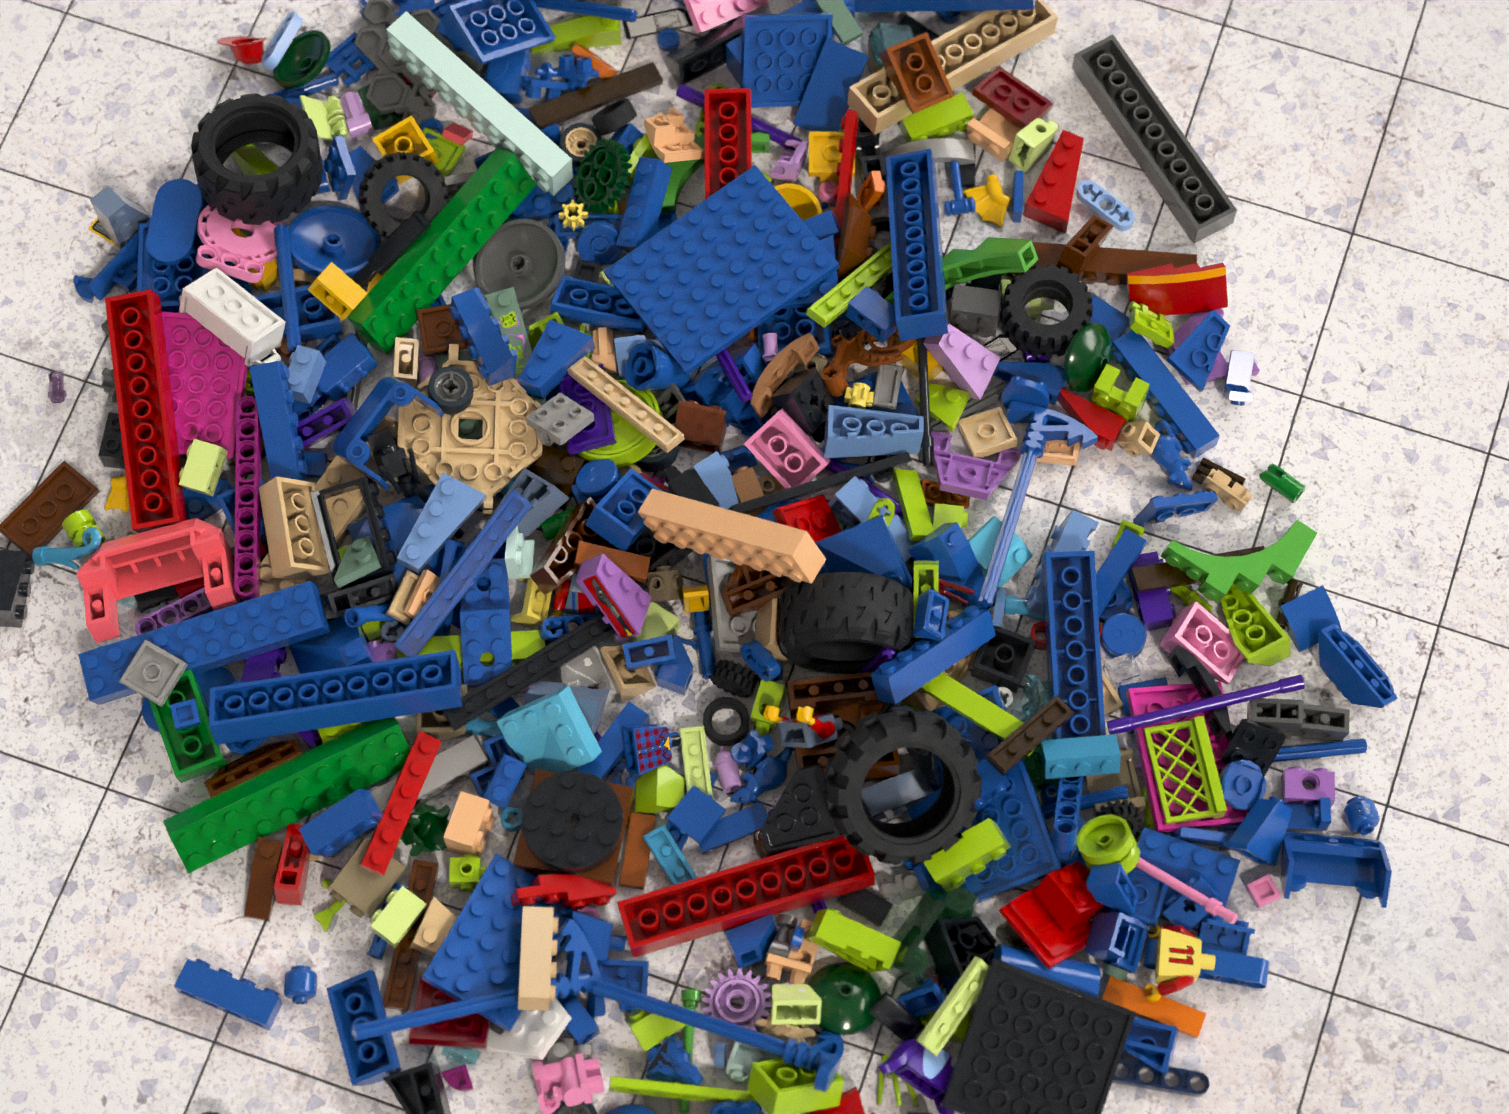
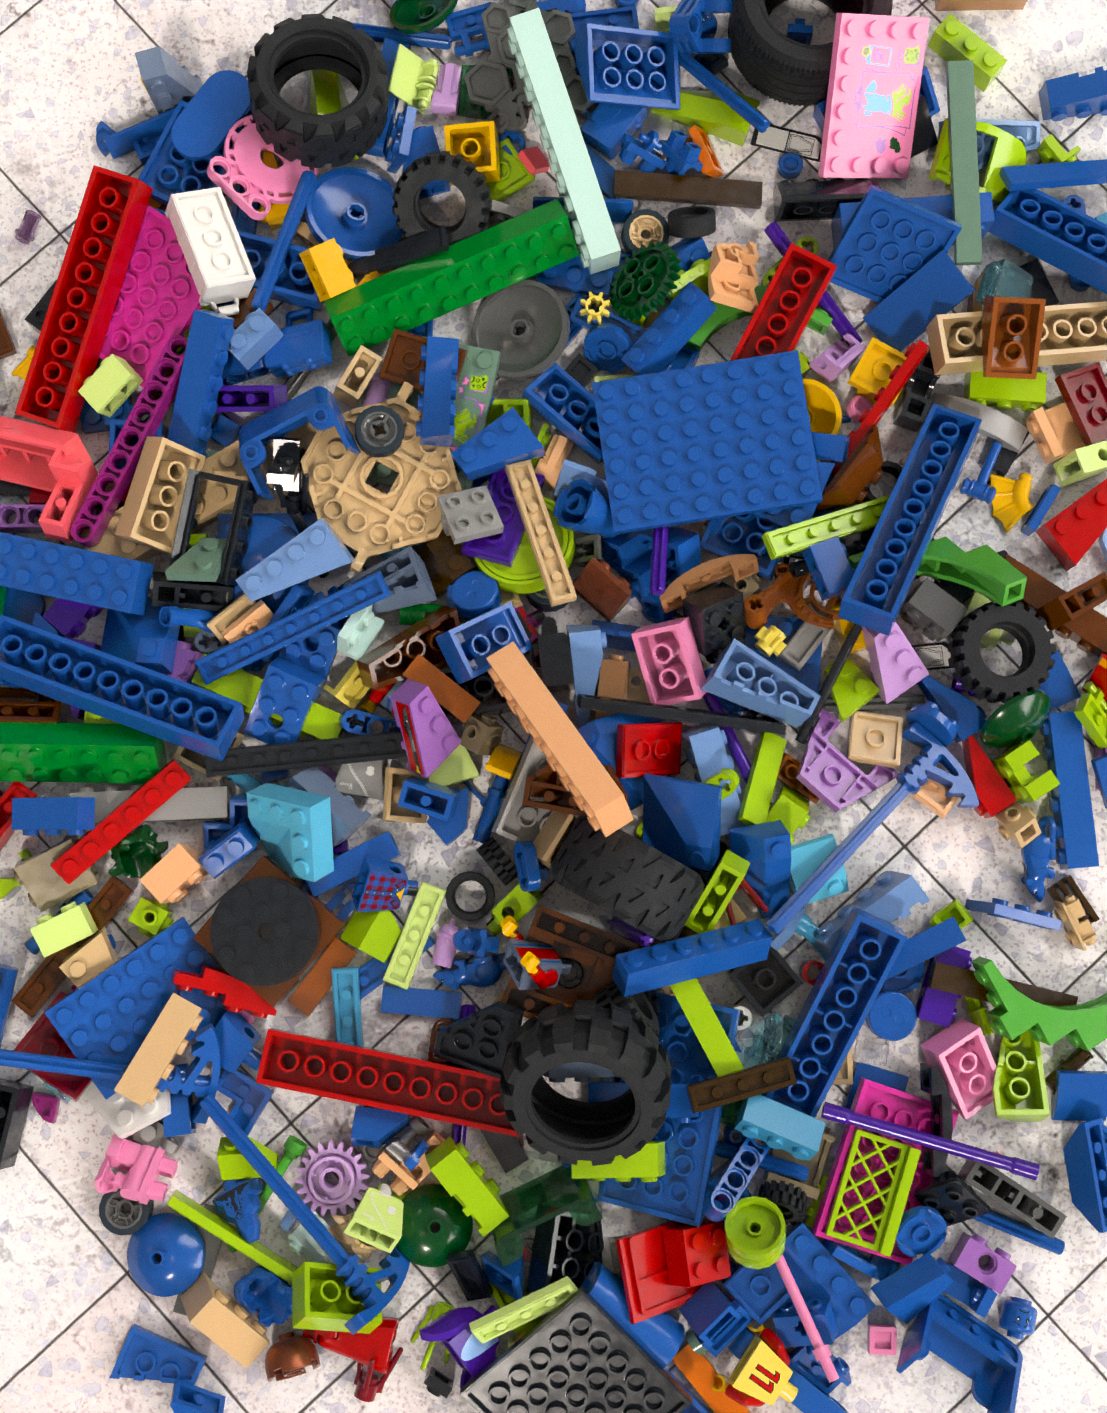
camera: 25 degrees right, 15 degrees up
(504, 817) = (217, 888): dark azure bush -> none
(696, 814) = (391, 976): blue piece -> none
(770, 347) = (711, 546): lavender pin -> none
(871, 191) = (898, 432): orange plate -> none
(931, 615) = (709, 922): blue slope -> none
(1112, 887) = (735, 1276): blue slope -> none

